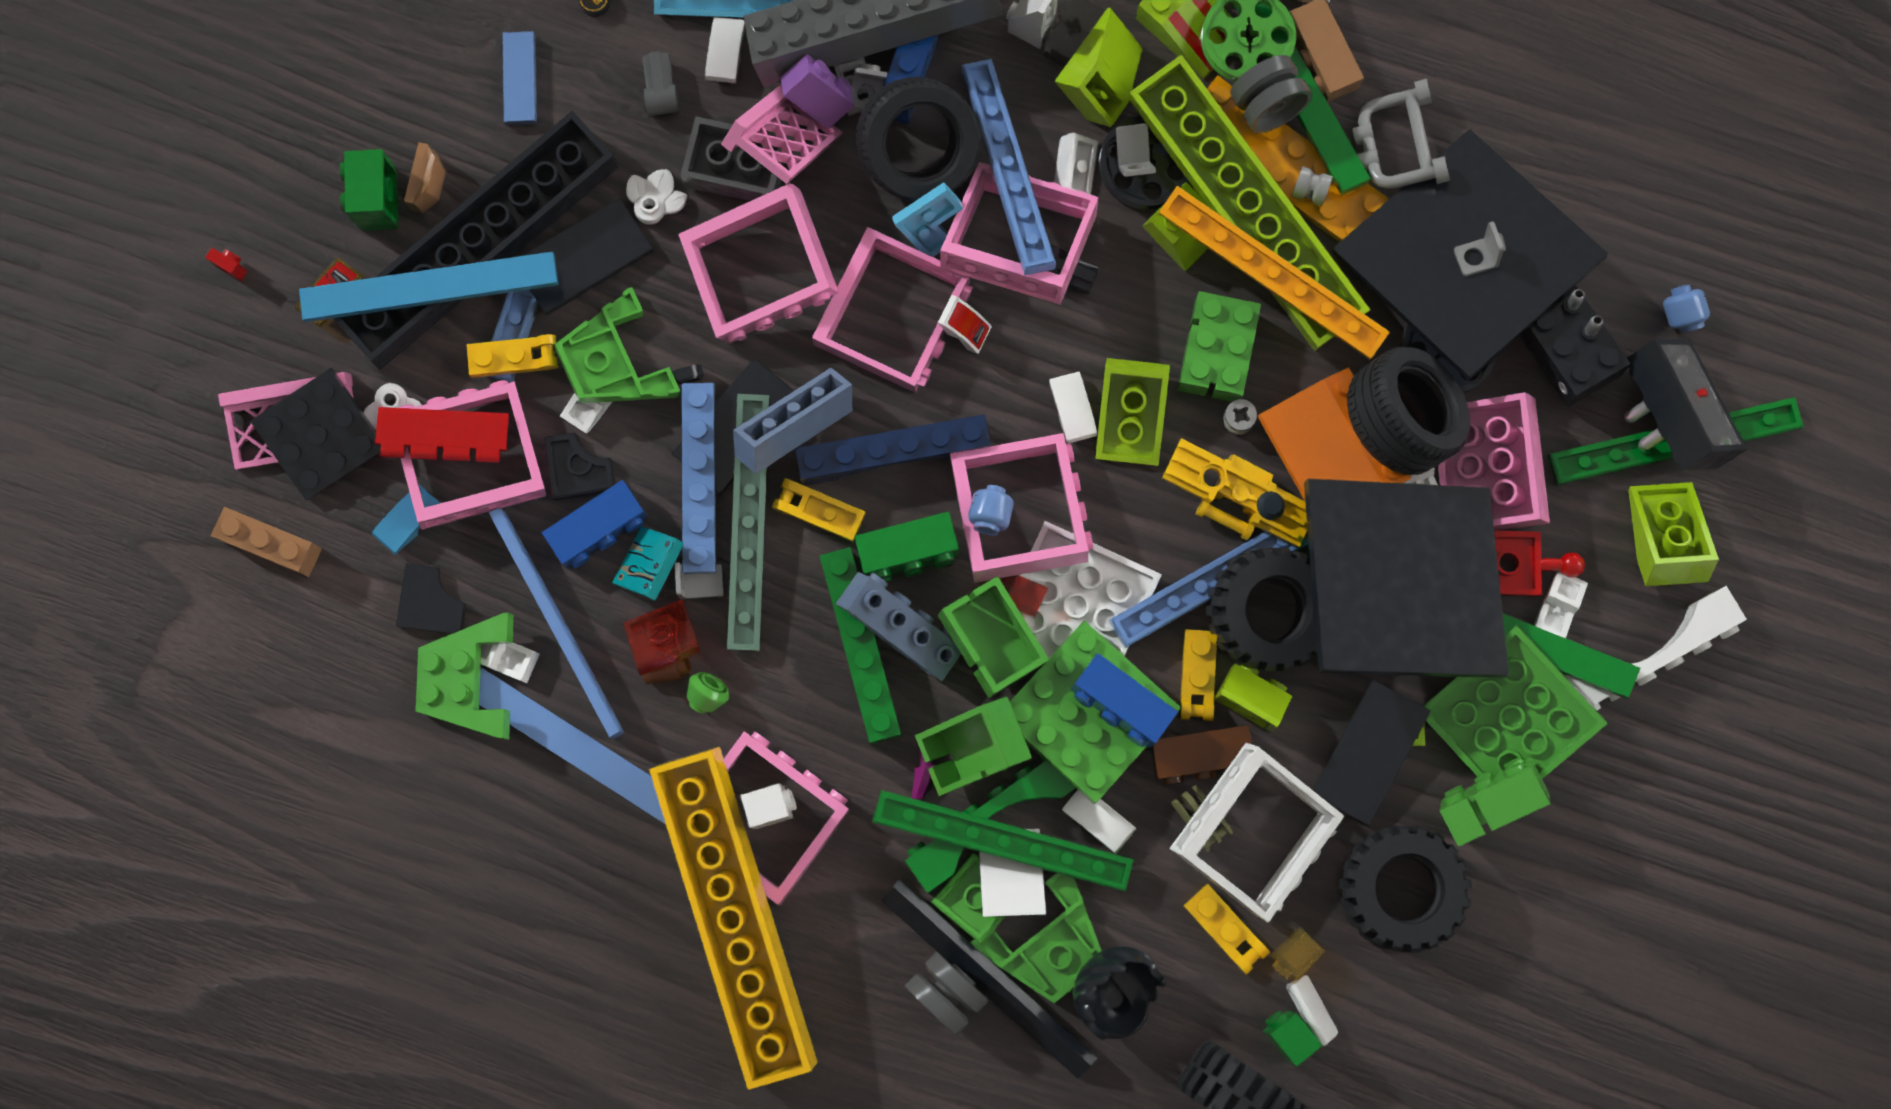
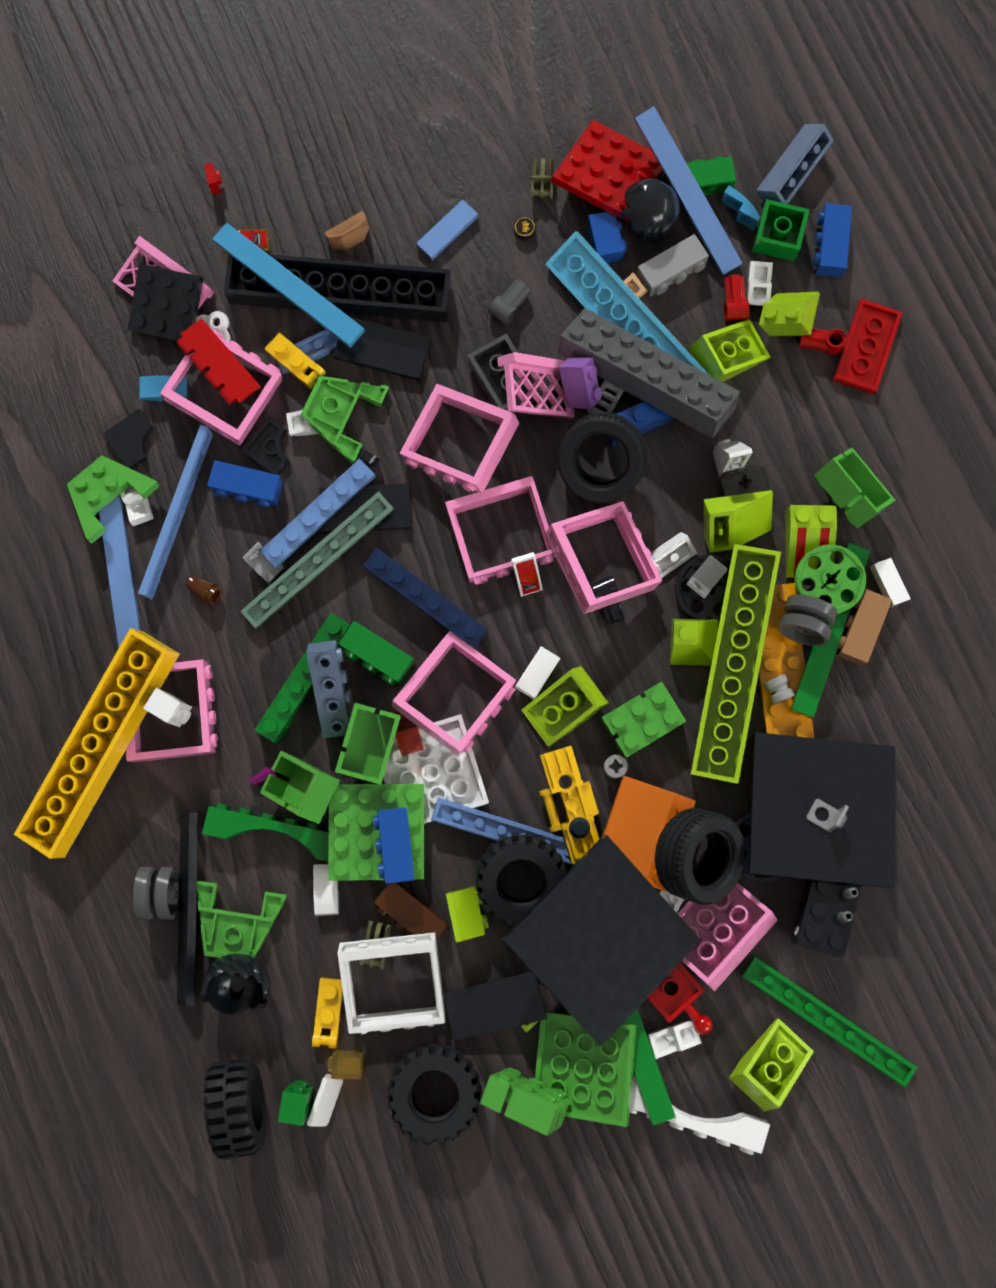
camera: 50 degrees right, 0 degrees up
(266, 541) = (87, 330): medium nougat brick -> none
(370, 189) = (315, 210): green brick -> none
(648, 563) = (248, 529): teal tile -> none
(654, 192) = (451, 352): white plate -> none
(661, 637) = (215, 572): clear red tile -> none
(706, 692) = (208, 621): bright green cone -> none
(724, 50) = (558, 317): white slope -> none
(793, 420) = (389, 532): sand blue brick -> none
(819, 510) = (359, 591): yellow plate -> none
(866, 75) = (614, 400): light grey bracket -> none
(923, 219) = (563, 500): medium azure plate -> none
(963, 901) = (224, 863): bright green plate -> none
(990, 510) = (434, 679): medium blue head -> none
(1003, 840) = (265, 849): green tile -> none
(1008, 167) = (632, 519): medium blue tile -> none
(1011, 886) = (254, 869): white sticker -> none
(1198, 674) = (453, 872): yellow plate -> none
(1273, 272) = (707, 712): light orange plate -> none
(1364, 136) = (837, 692): light grey bar -> none
(1684, 406) = (849, 1008): black piece -> none
(1686, 309) = (909, 960): medium blue head -> none

